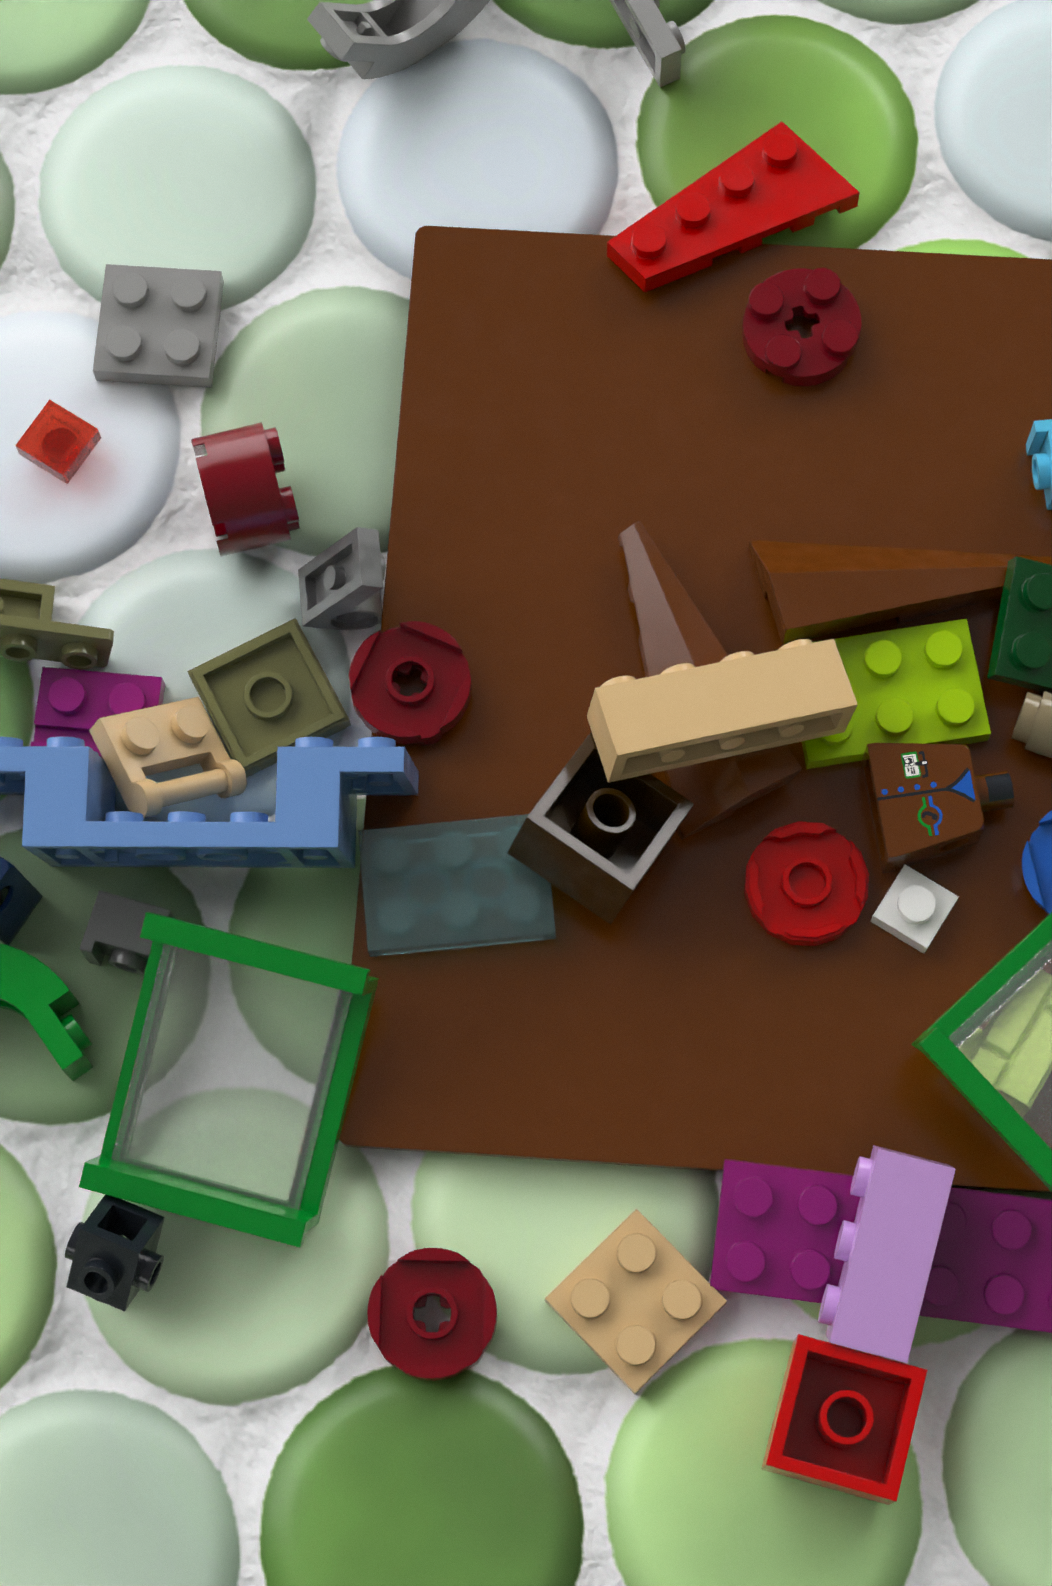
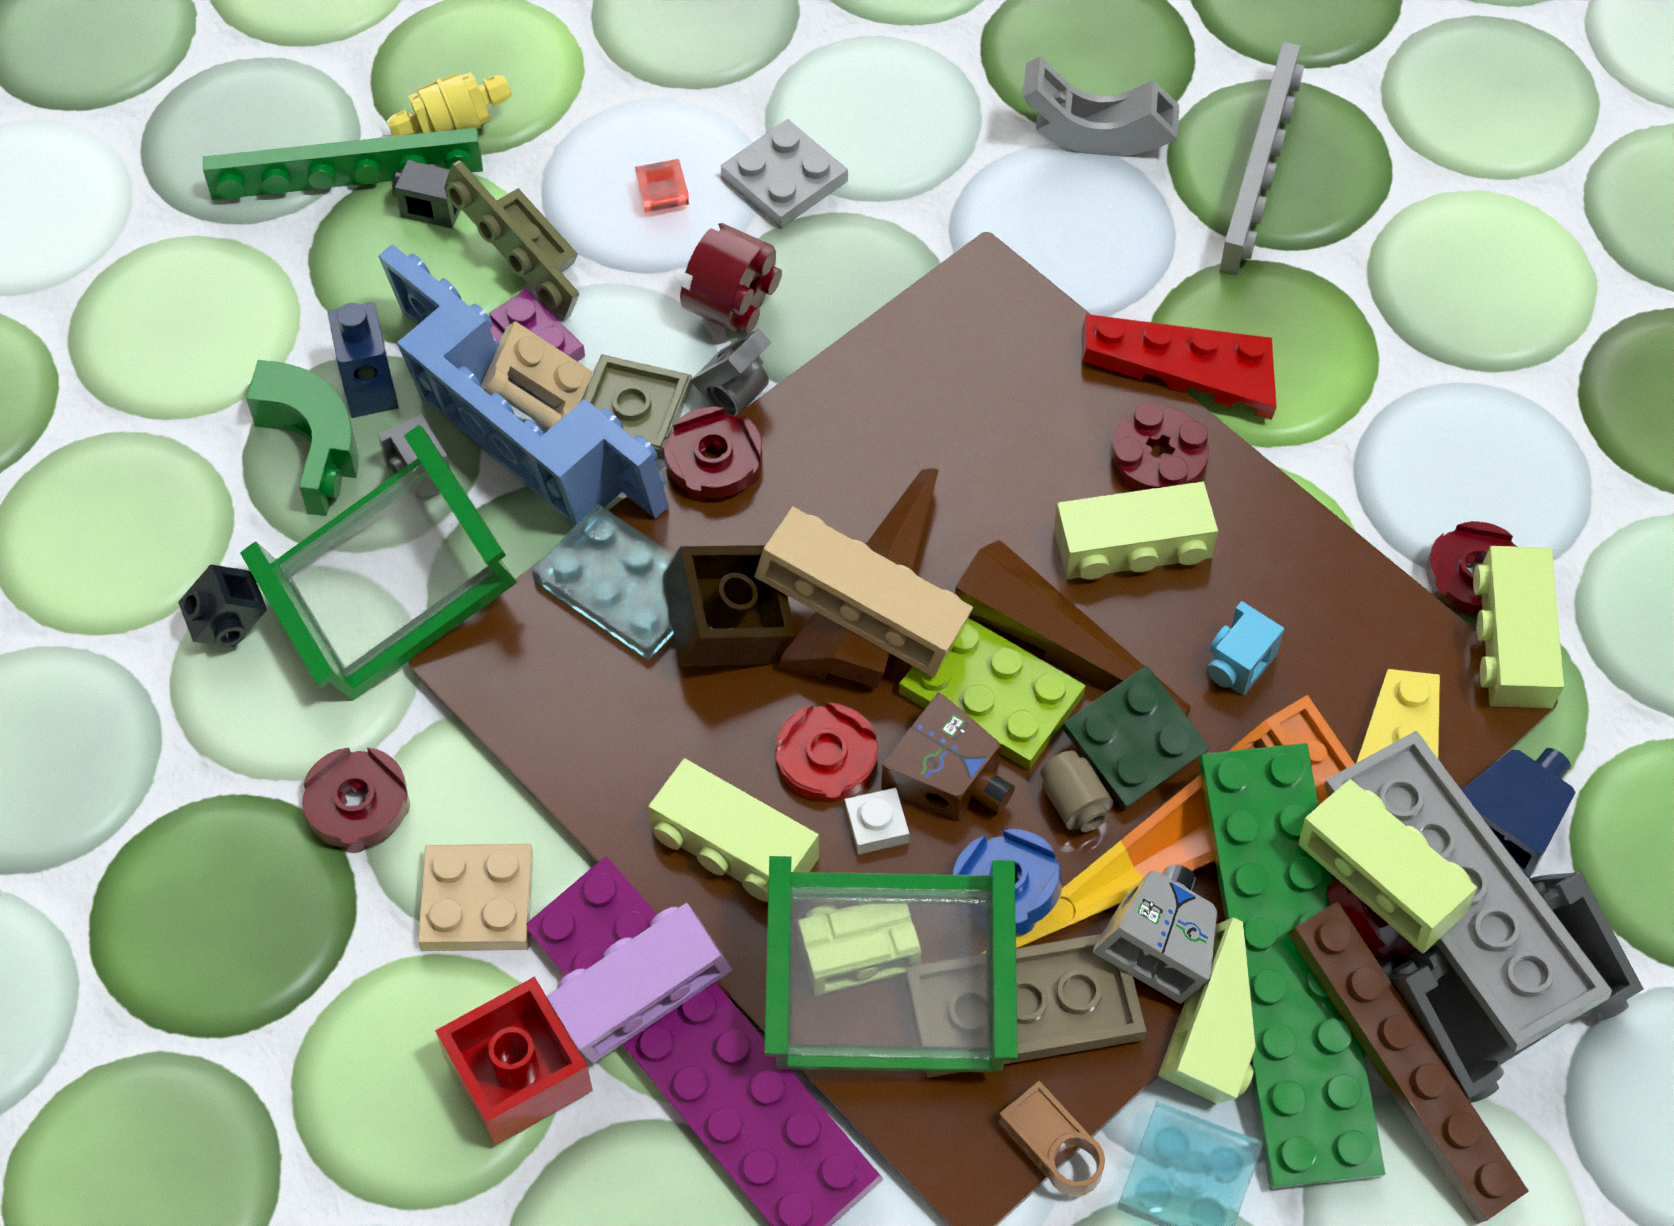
camera: 40 degrees right, 15 degrees down
(815, 1038) = (728, 828): none -> yellowish green brick
(866, 429) = (1135, 531): none -> yellowish green brick

